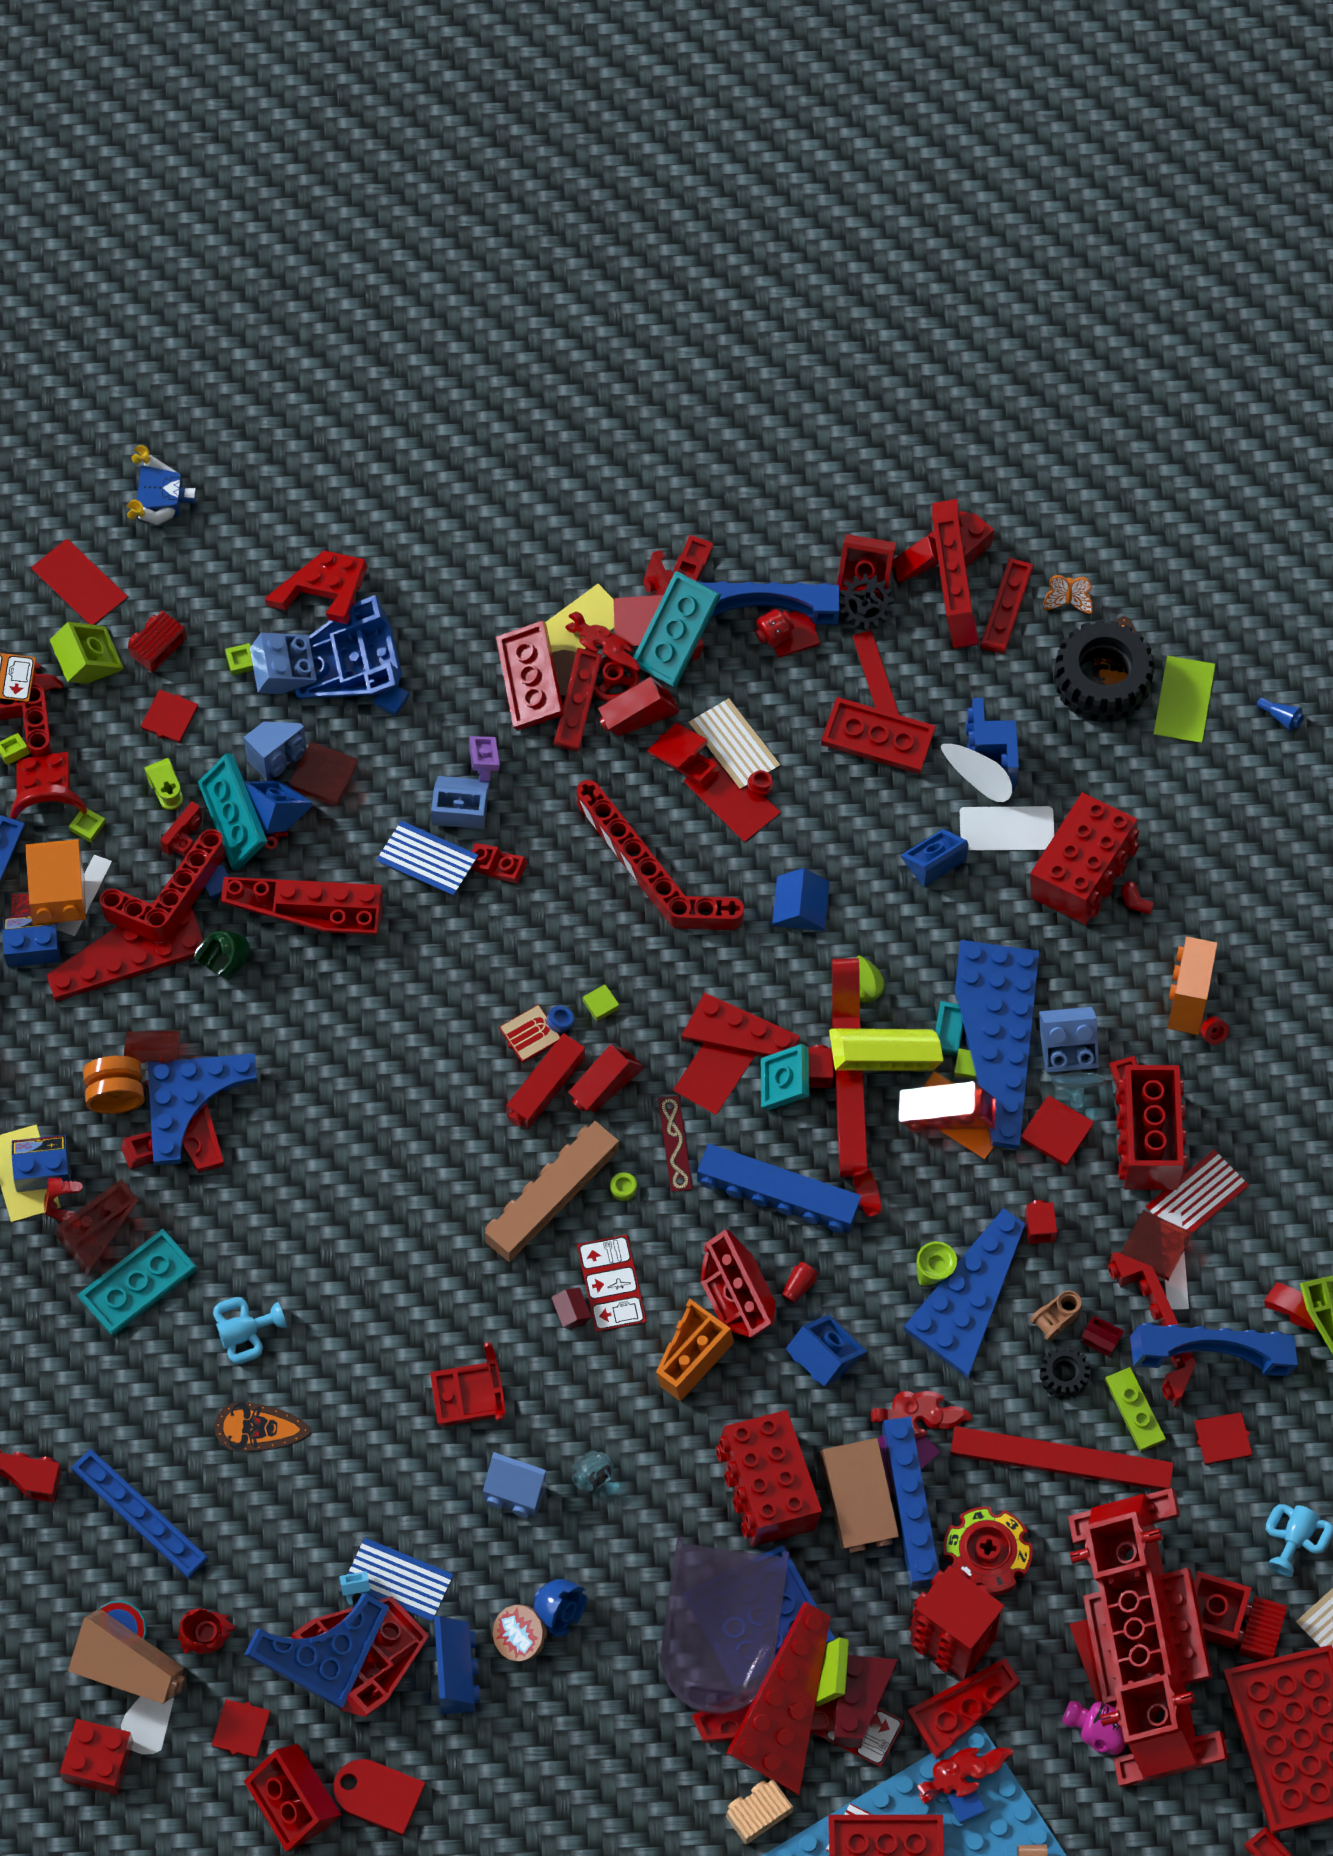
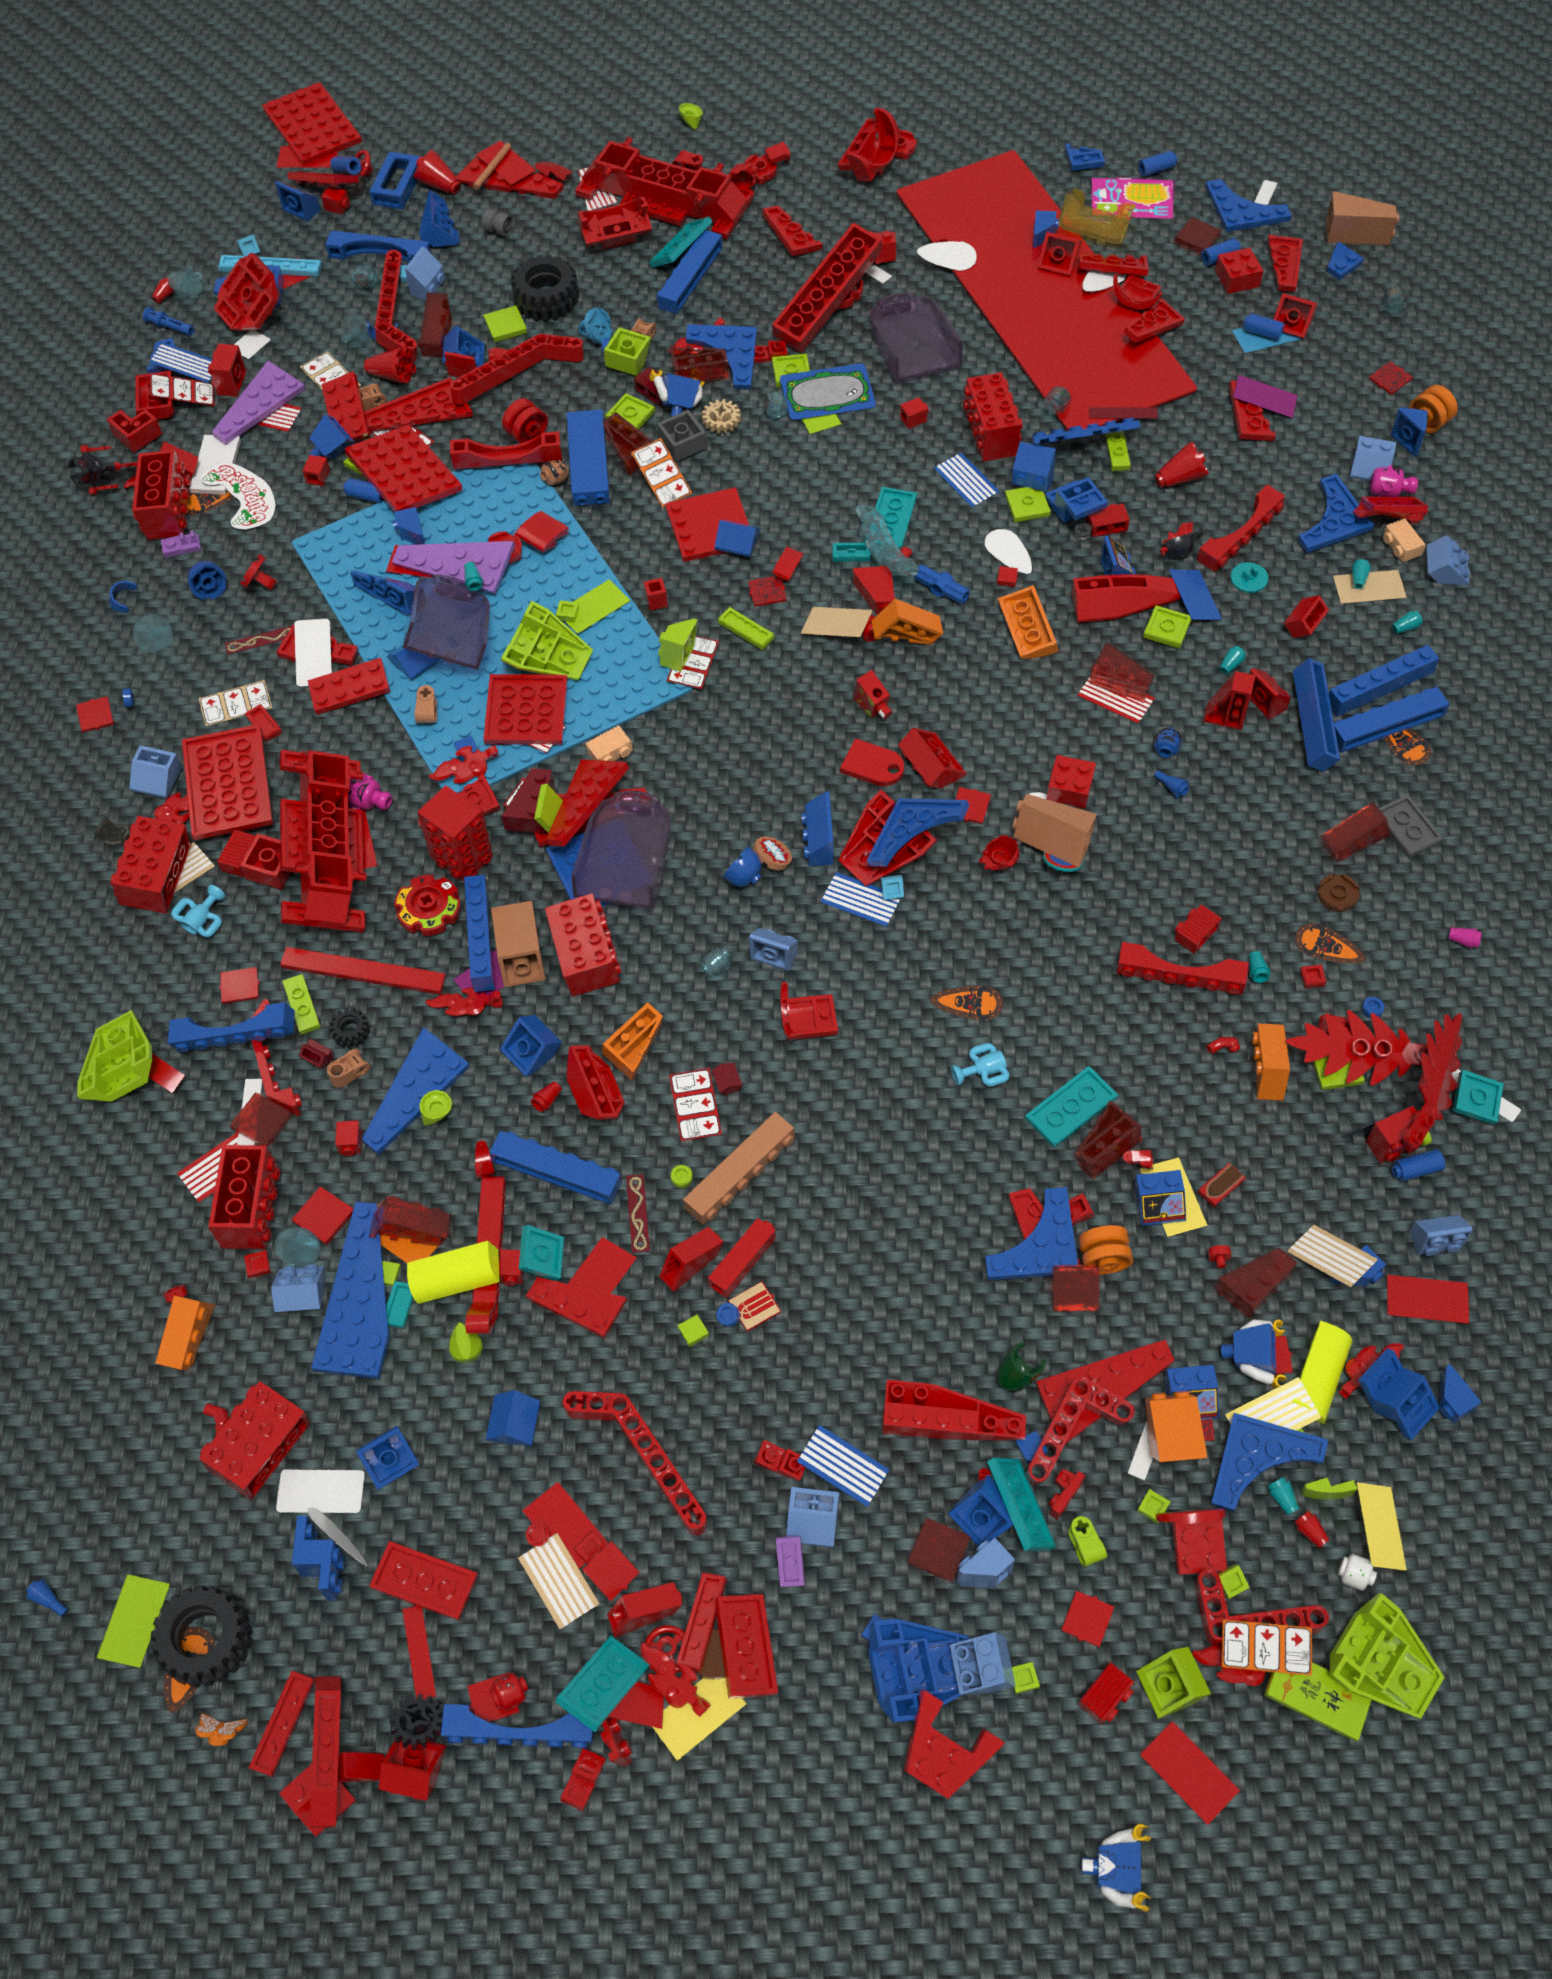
camera: 175 degrees left, 5 degrees down
(139, 1513) = (1055, 942): blue tile -> none

